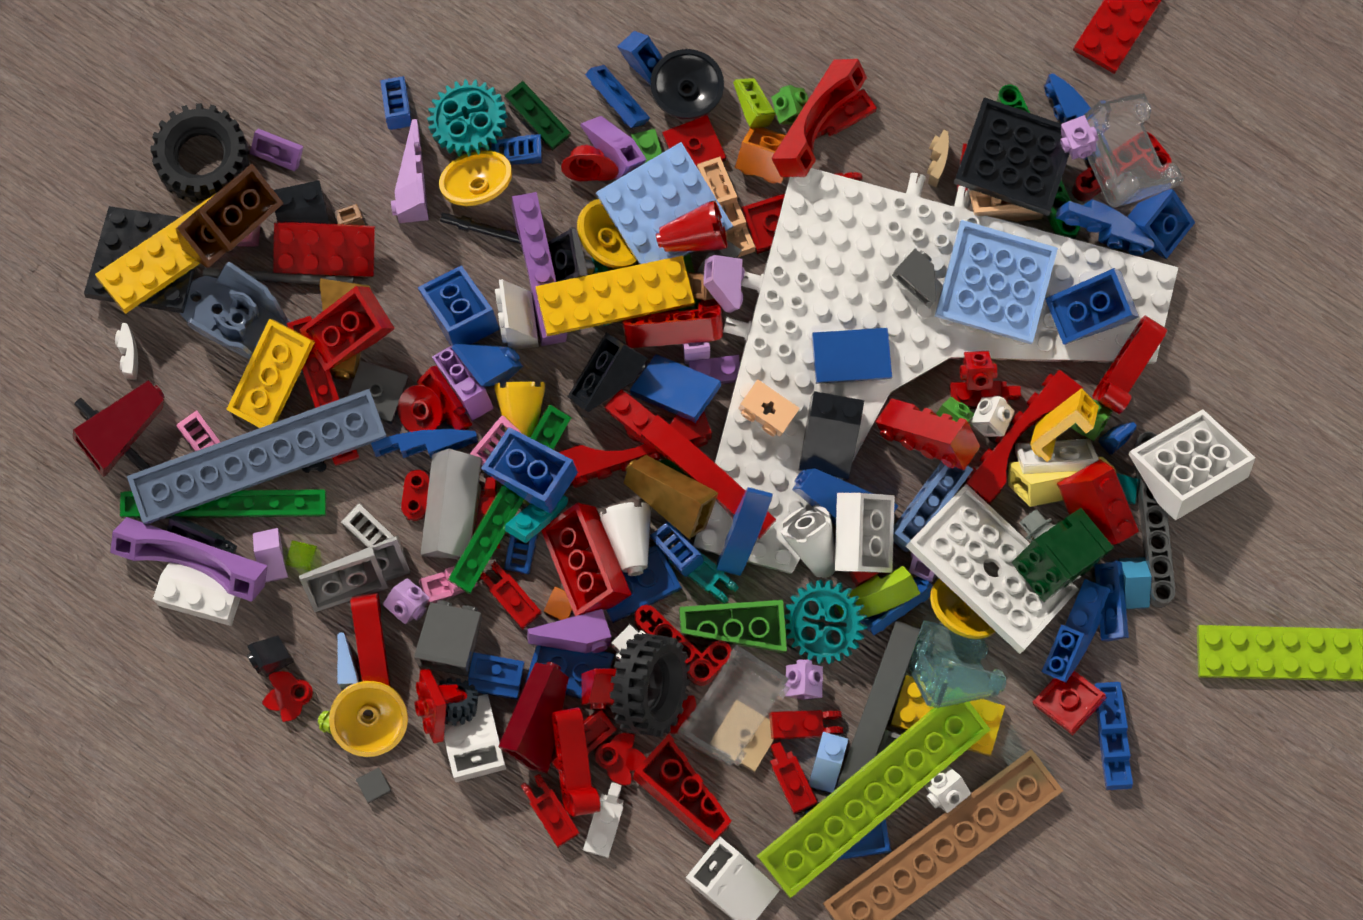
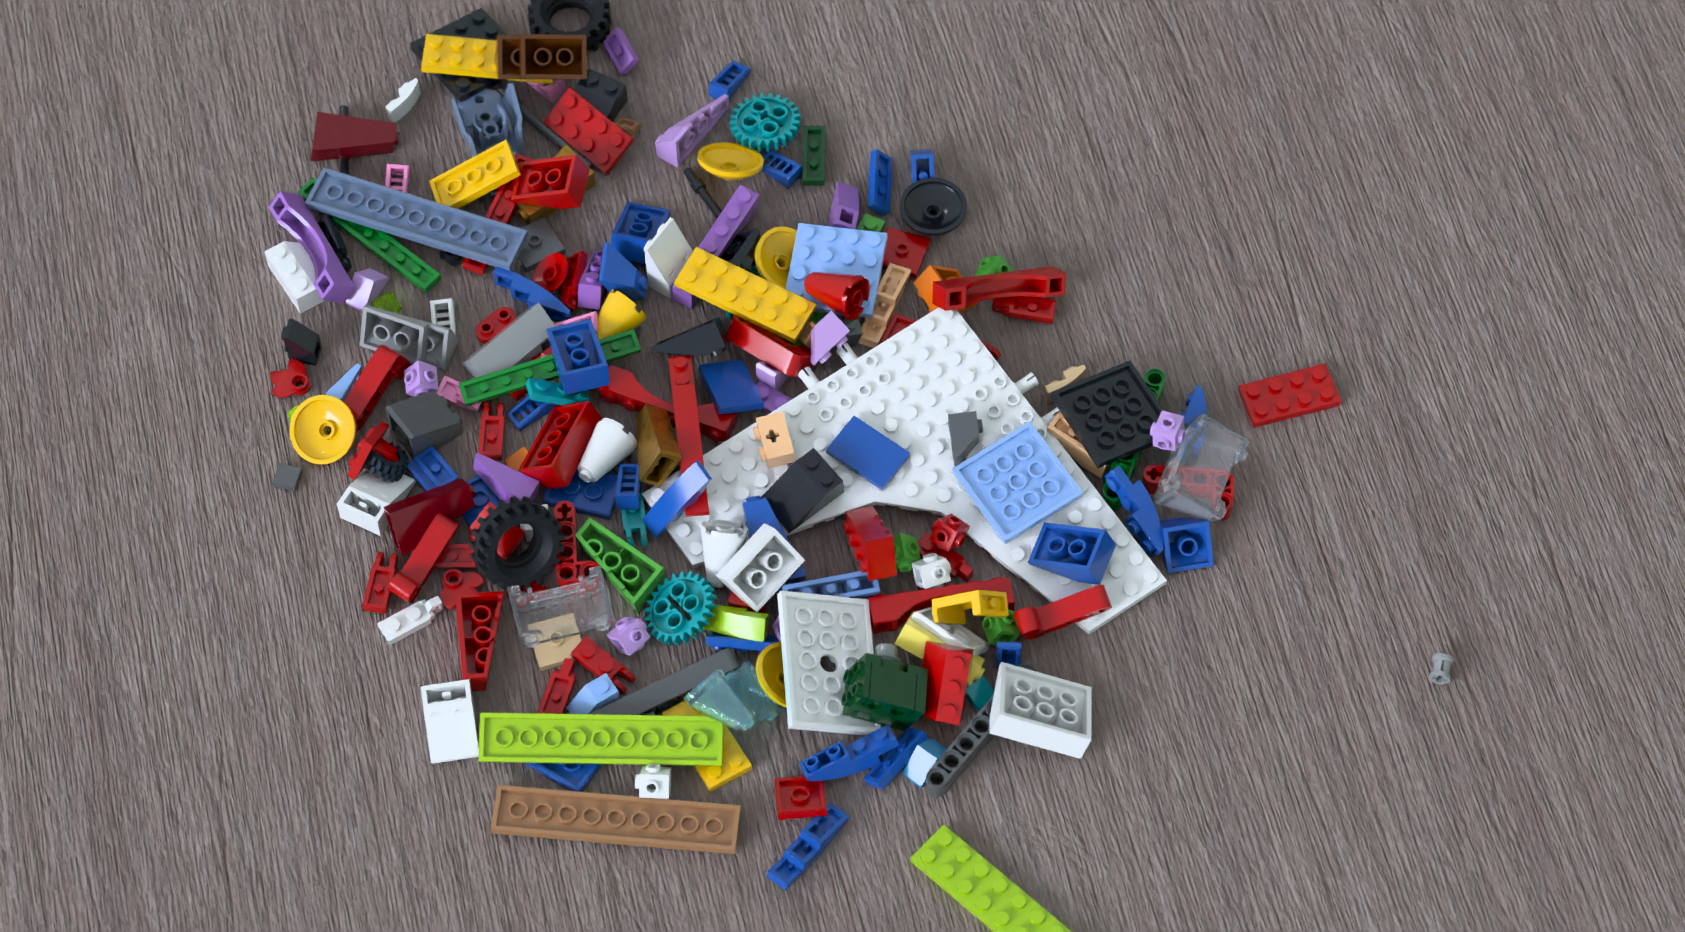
camera: 45 degrees right, 15 degrees down
(589, 164) = (813, 206): red piece -> none
(758, 110) = (969, 256): lime slope -> none

